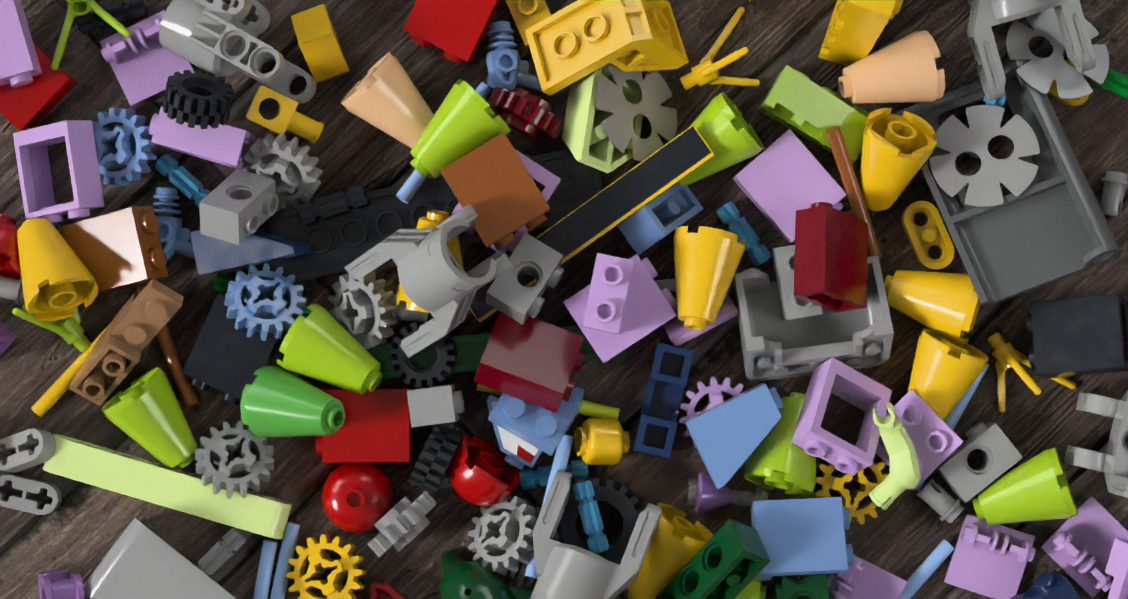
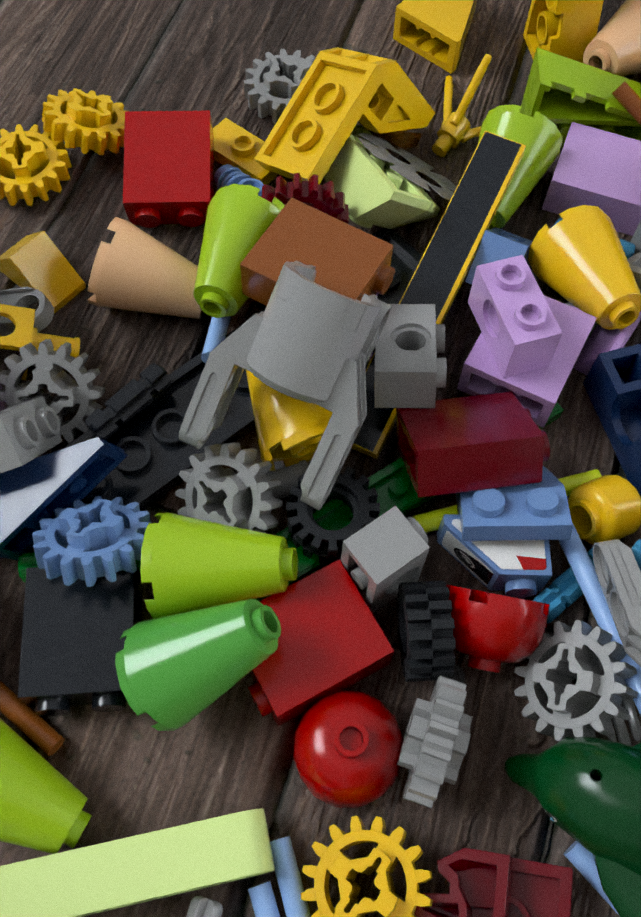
camera: 30 degrees left, 25 degrees down
(241, 472) = (154, 782): light grey gear -> none

